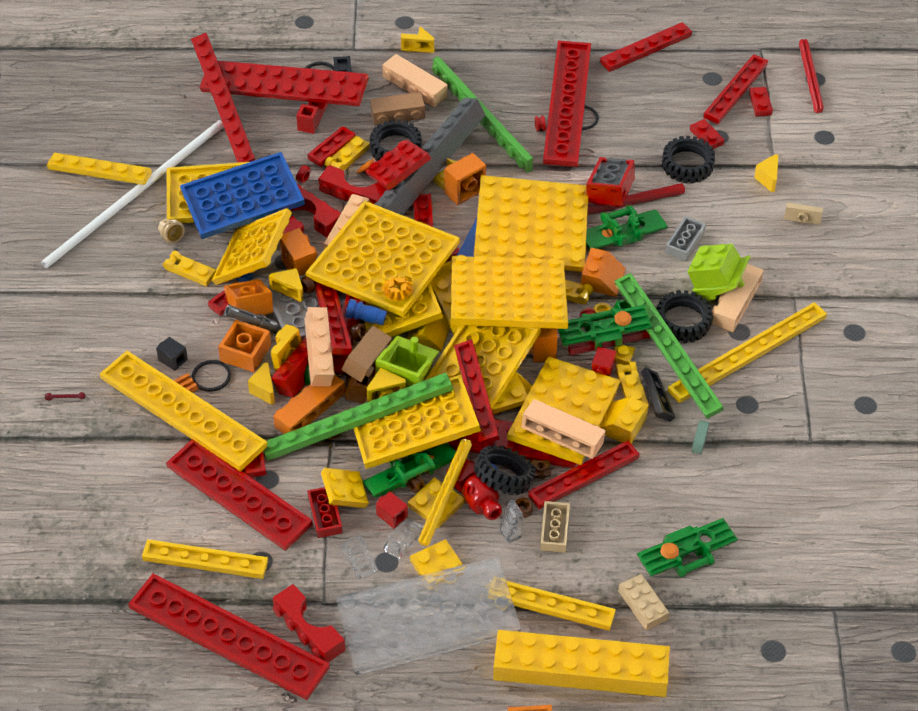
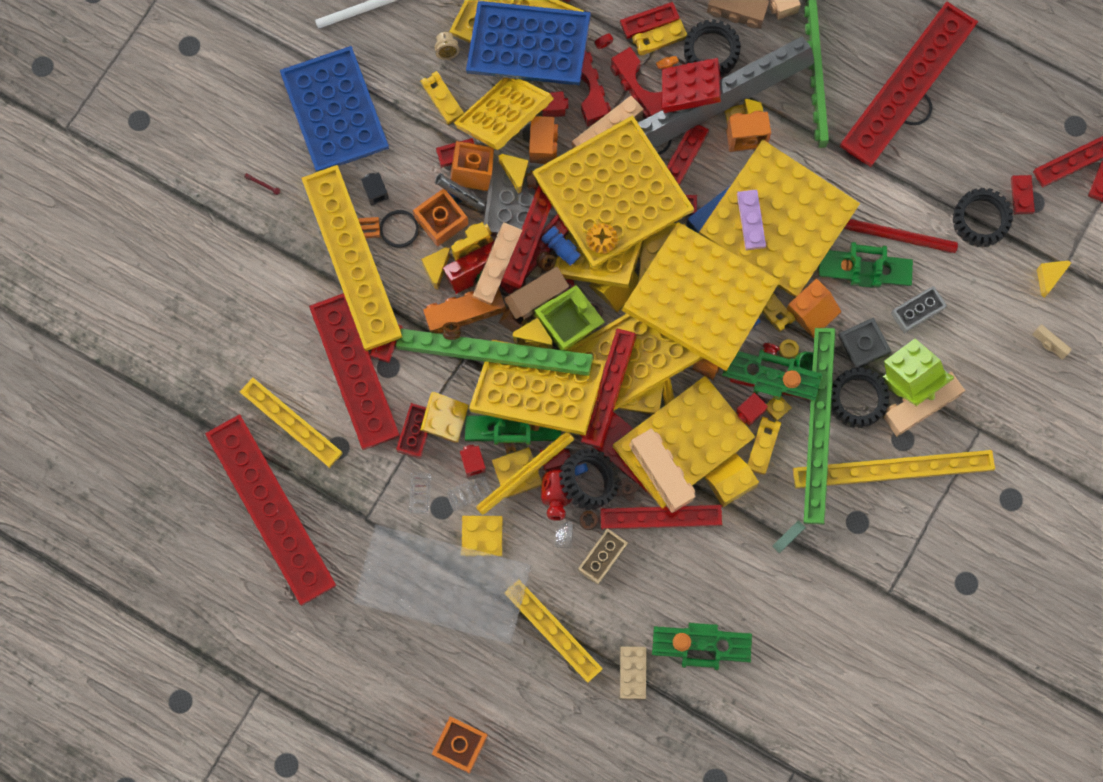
camera: 30 degrees right, 25 degrees up
(98, 314) = (334, 109): none -> blue plate
(309, 417) = (451, 330): none -> reddish brown bush
(323, 641) = (336, 511): red arch -> none
(511, 228) = (751, 220): none -> lavender plate
(540, 123) = (865, 96): red bush -> none
(581, 663) = (541, 703): yellow brick -> none
(610, 181) = (885, 209): red piece -> none
(645, 47) = (1033, 52): red plate -> none
(657, 394) = (779, 470): black plate -> none
(660, 278) = (864, 343): none -> dark grey plate

